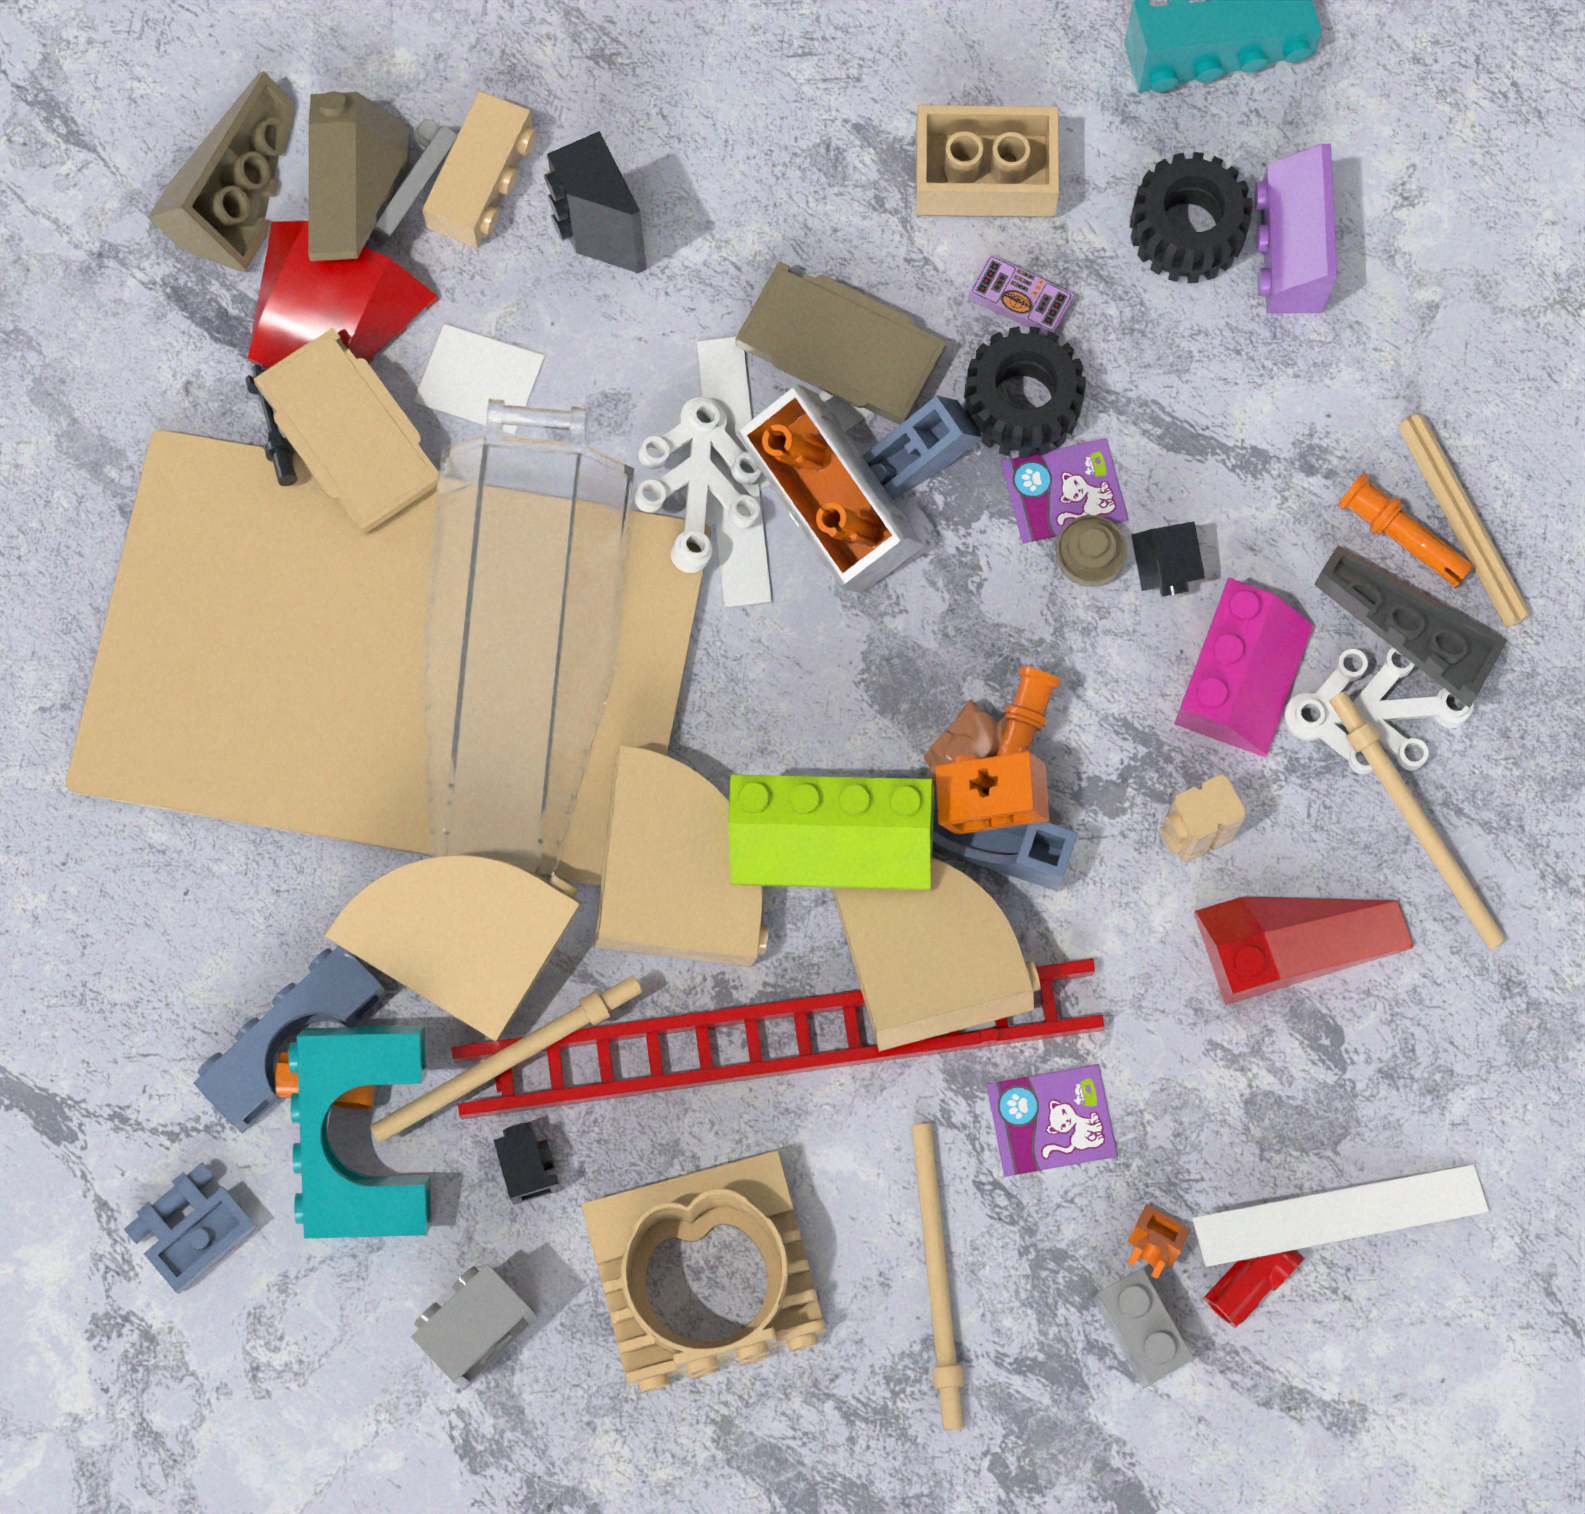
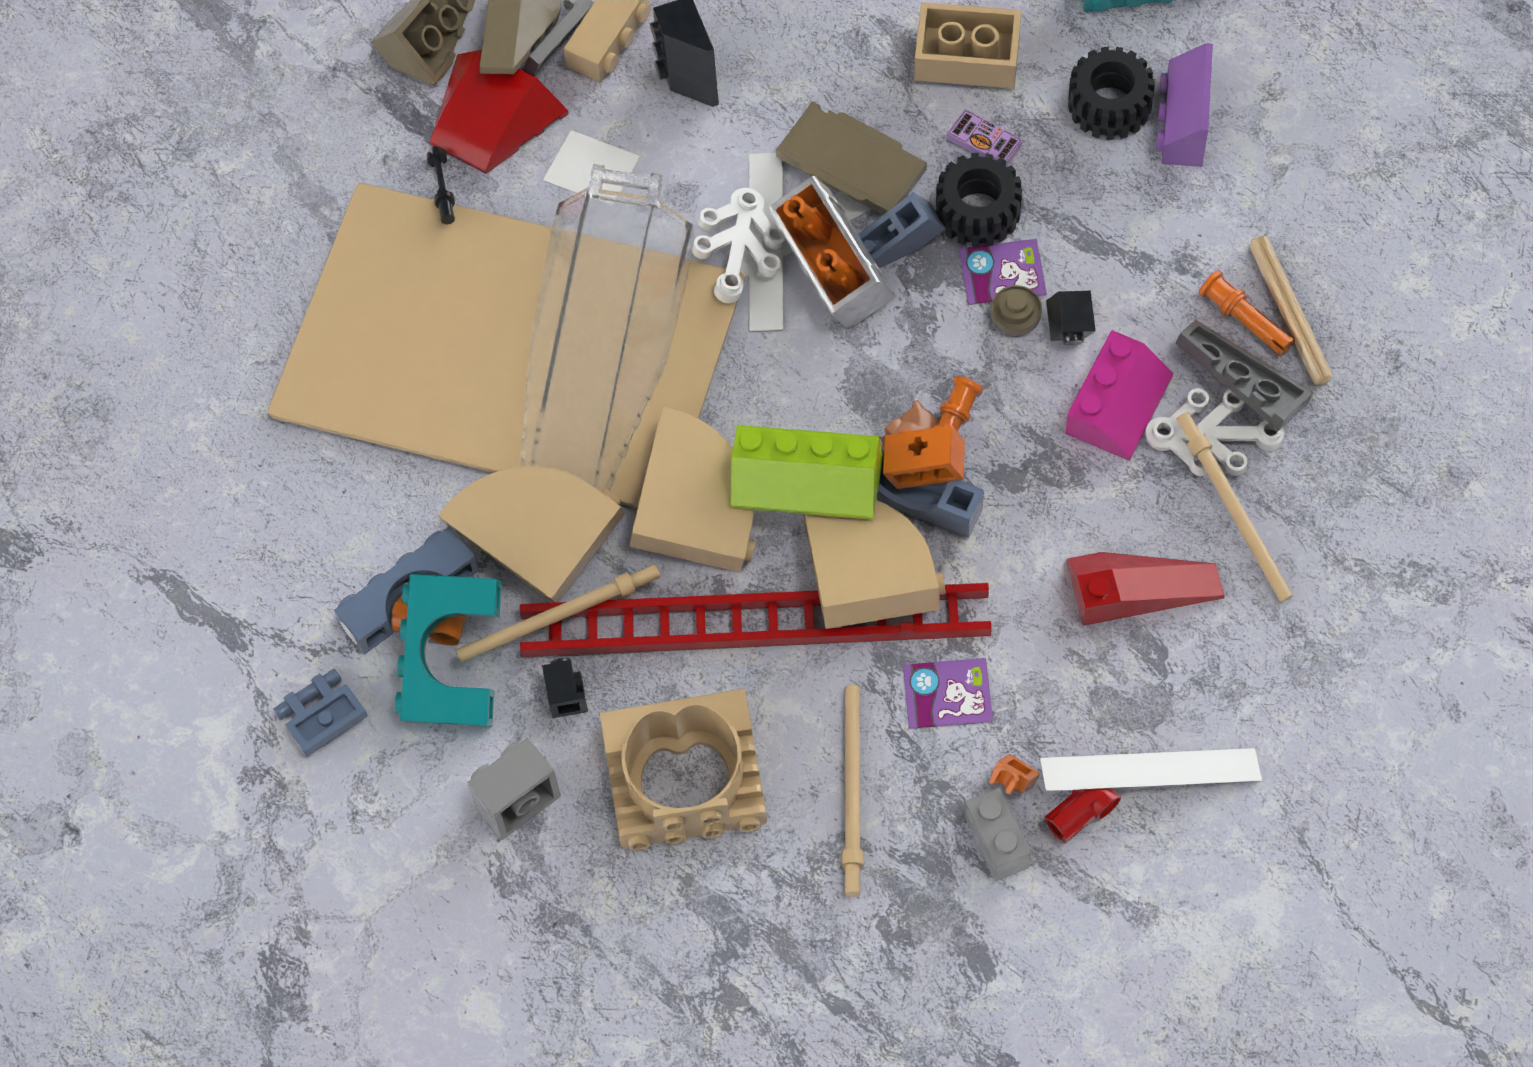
camera: 10 degrees right, 10 degrees down
(348, 430) = (494, 189): tan piece -> none
(1202, 819) = (1076, 491): tan brick -> none

